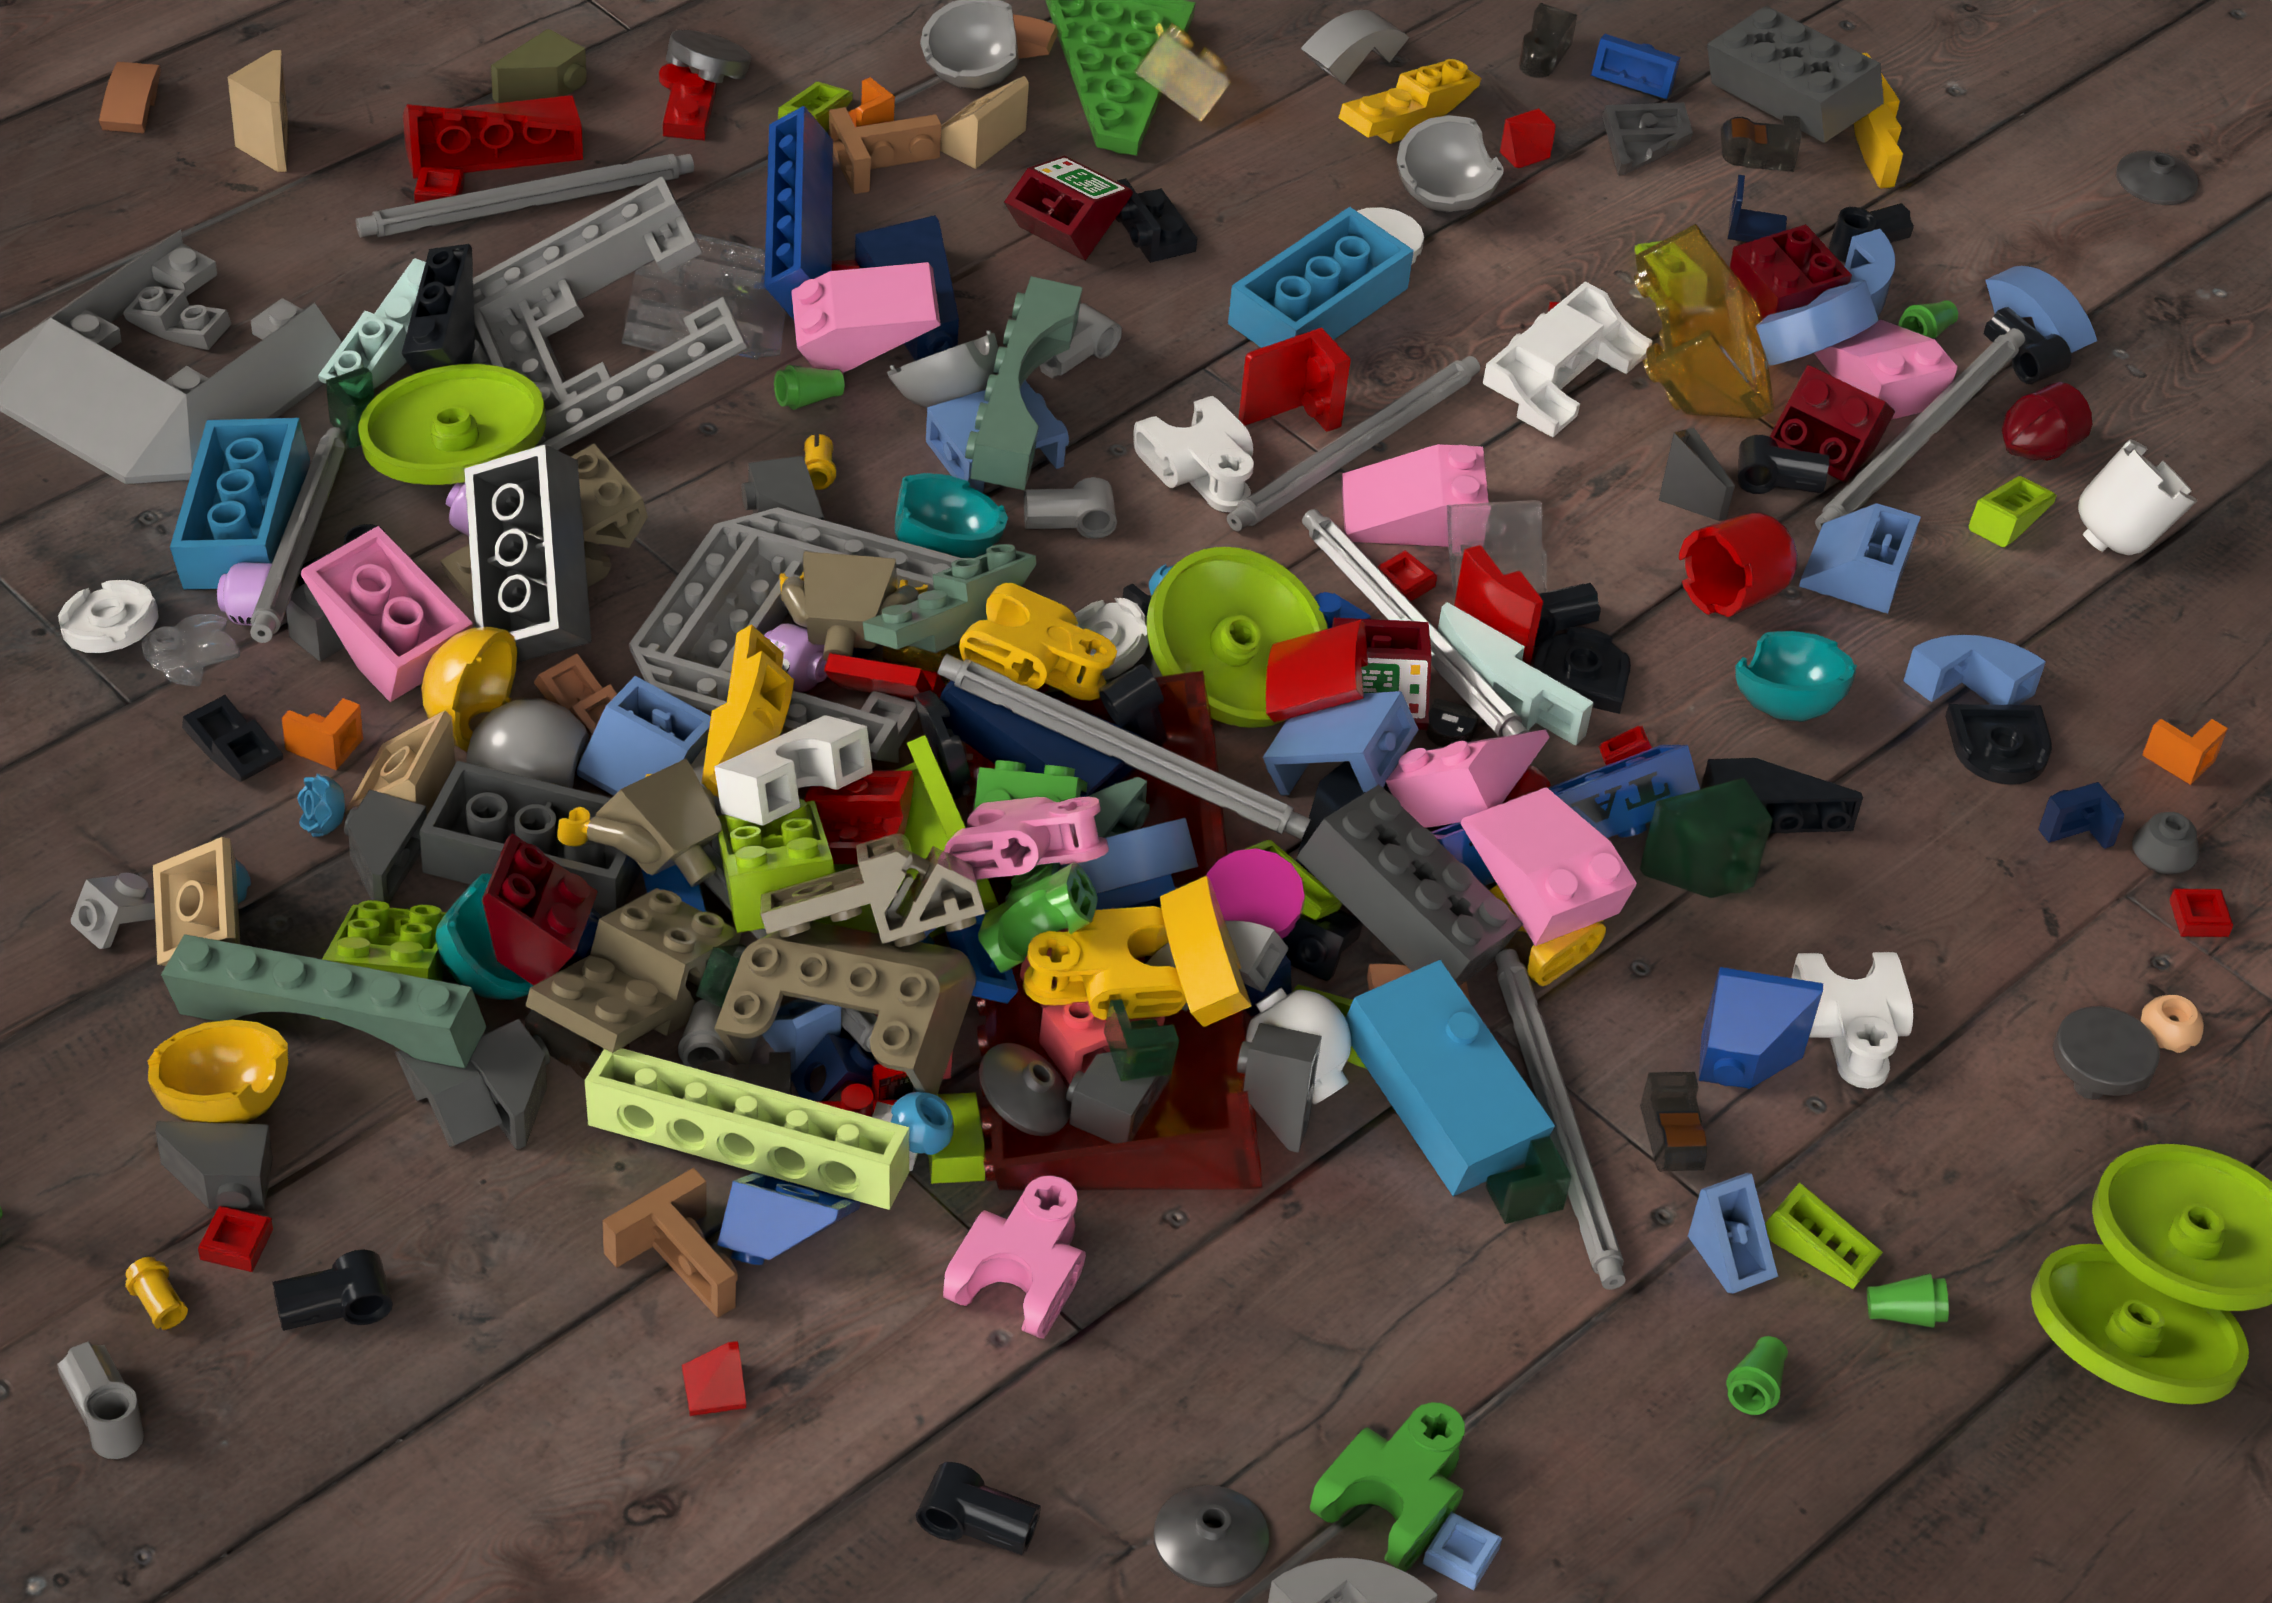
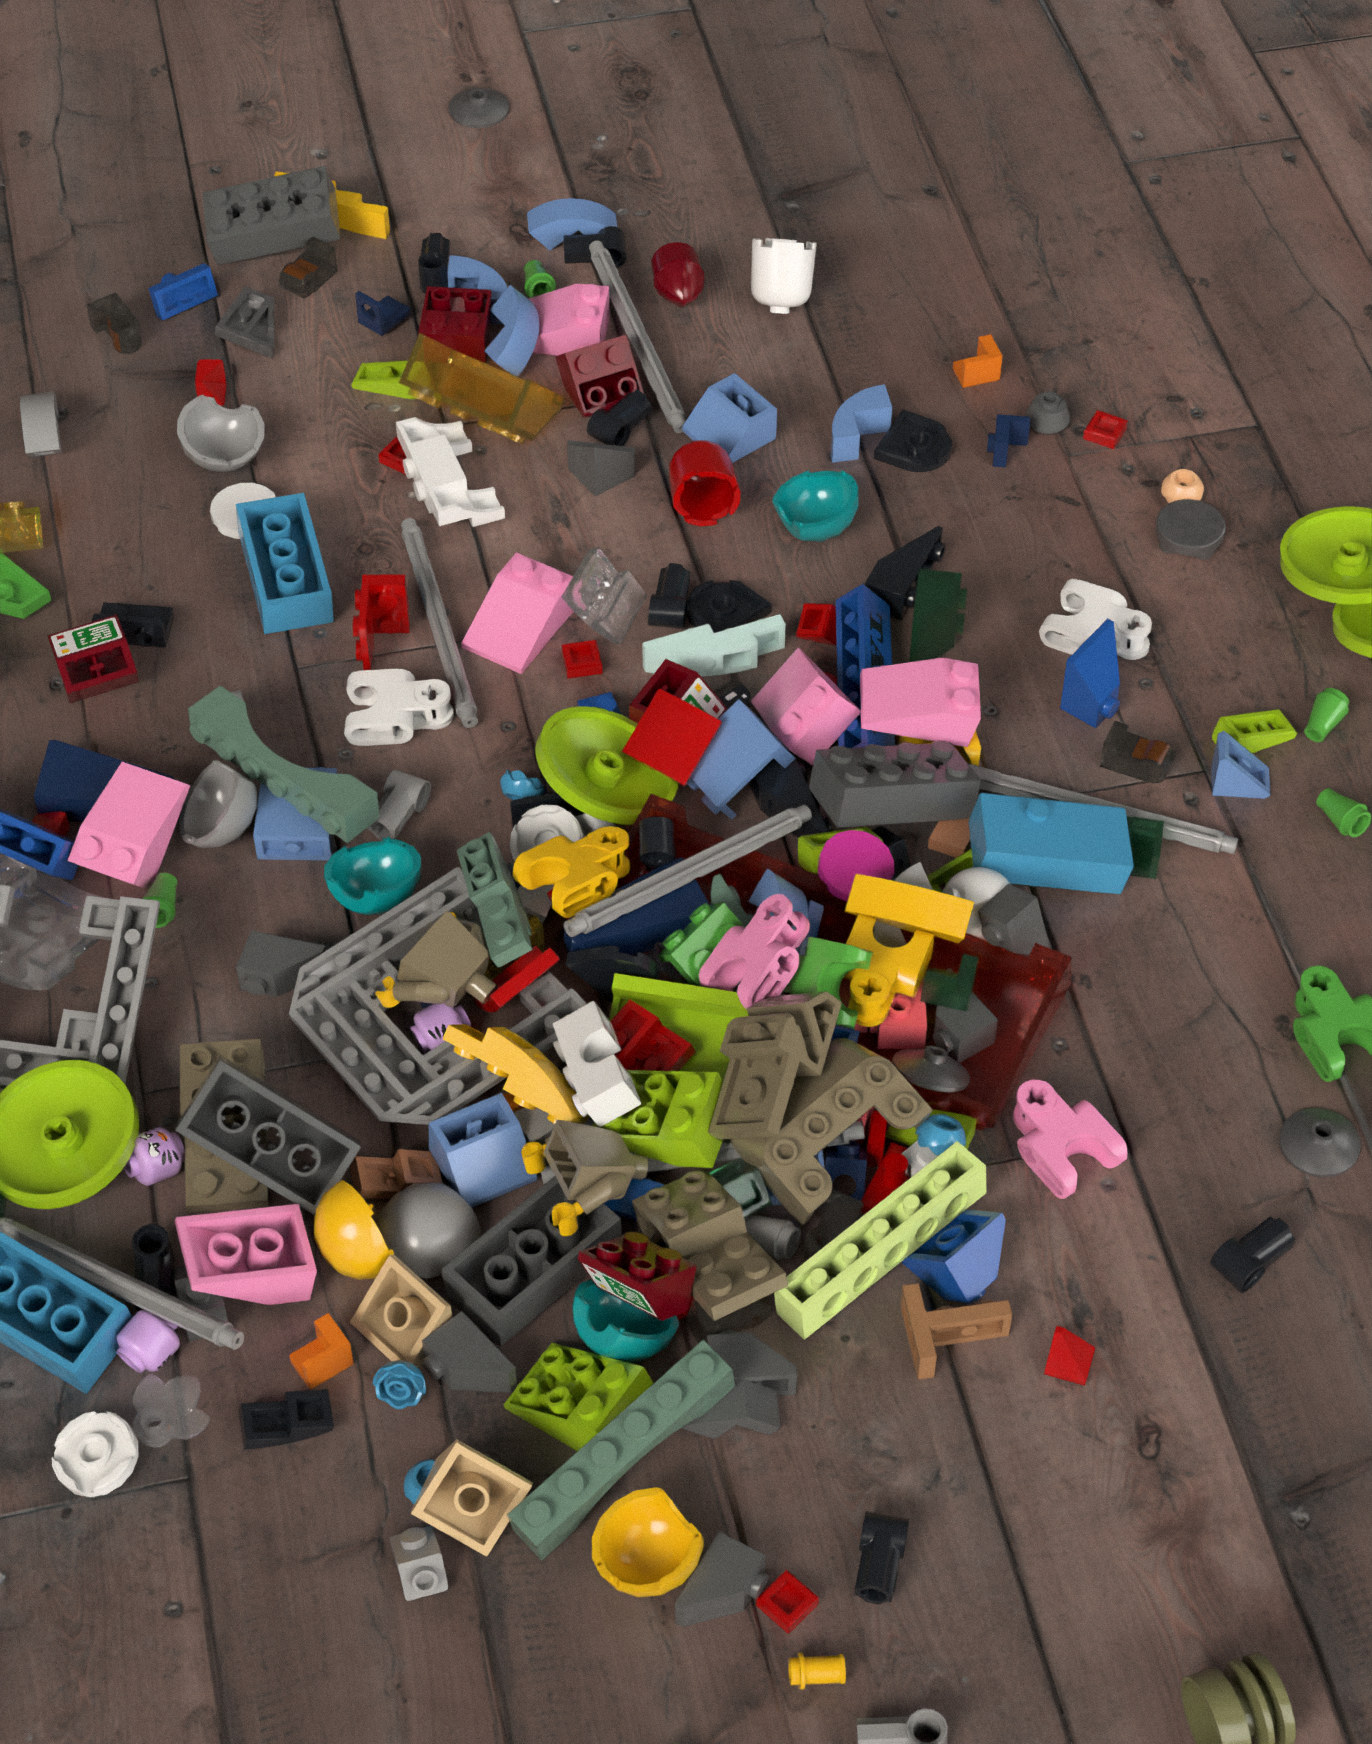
camera: 55 degrees left, 5 degrees up
(819, 461) = (241, 926): yellow pin -> none
(1396, 606) = (629, 673): piece -> none
(1417, 97) = (124, 421): yellow slope -> none
(1499, 600) = (663, 615): red slope -> none
(2010, 510) = (728, 334): lime slope -> none

